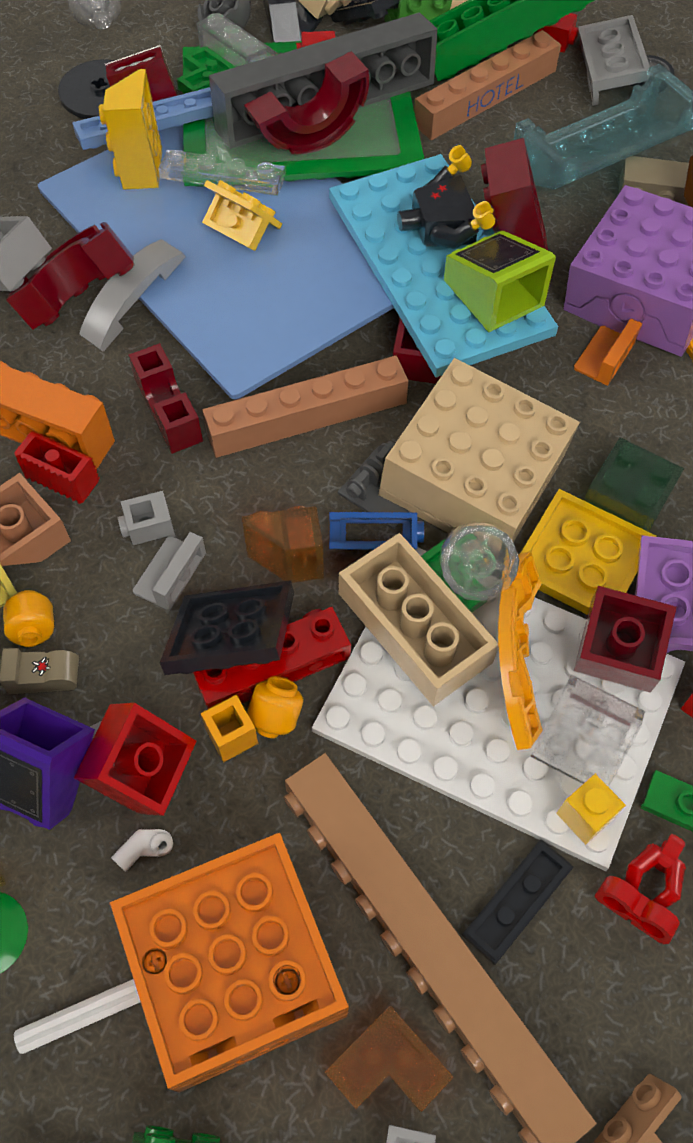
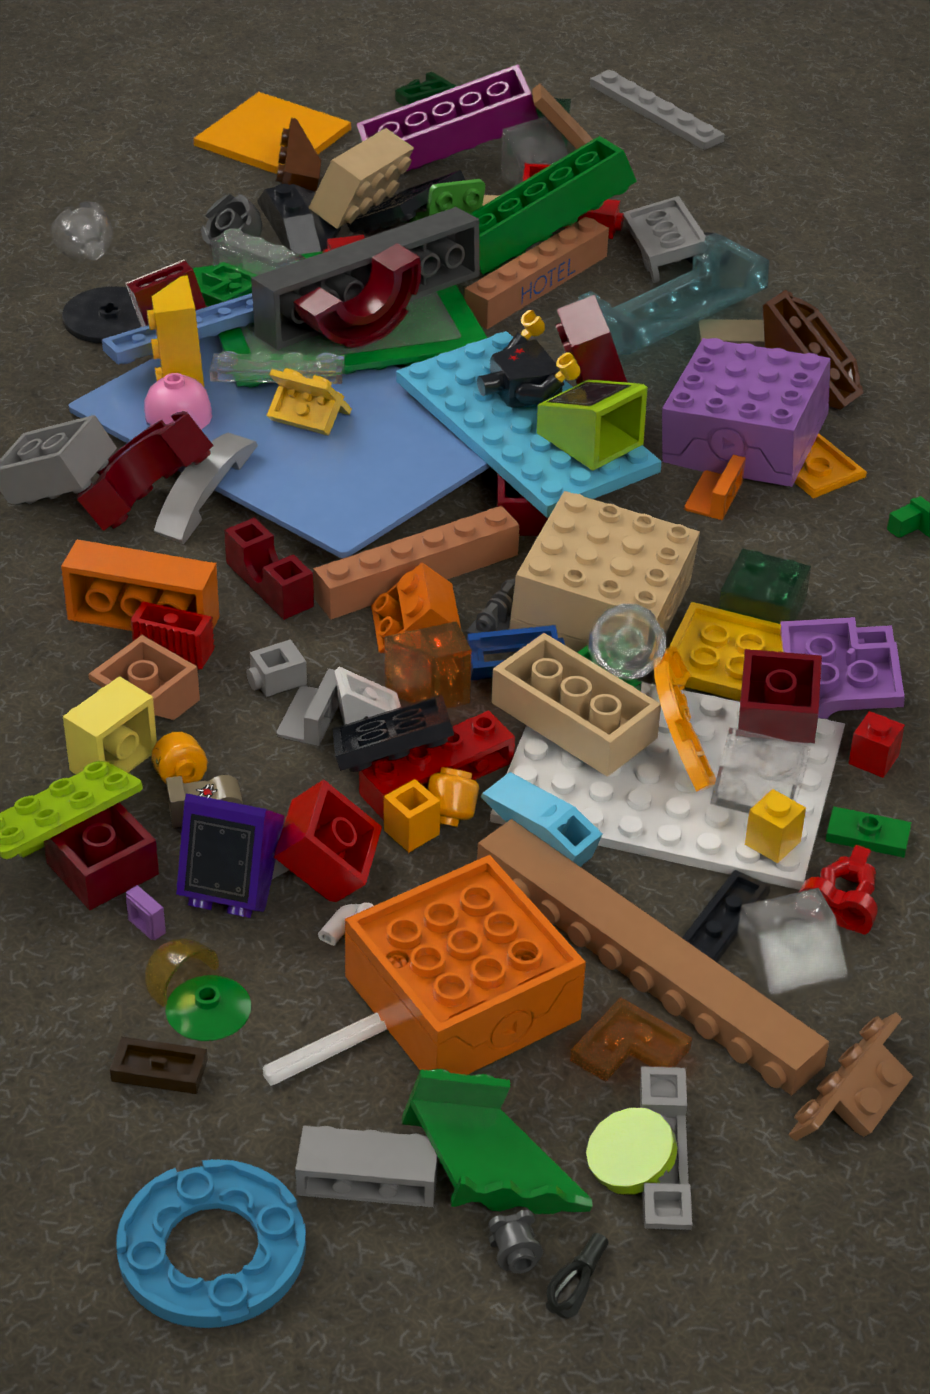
camera: 10 degrees left, 20 degrees down
(125, 201) = (177, 394): none -> bright pink cylinder
(218, 569) = (362, 697): none -> white slope
(293, 467) = (414, 603): none -> orange slope
(355, 758) = (544, 816): none -> medium azure slope
(583, 957) = (792, 941): none -> clear slope

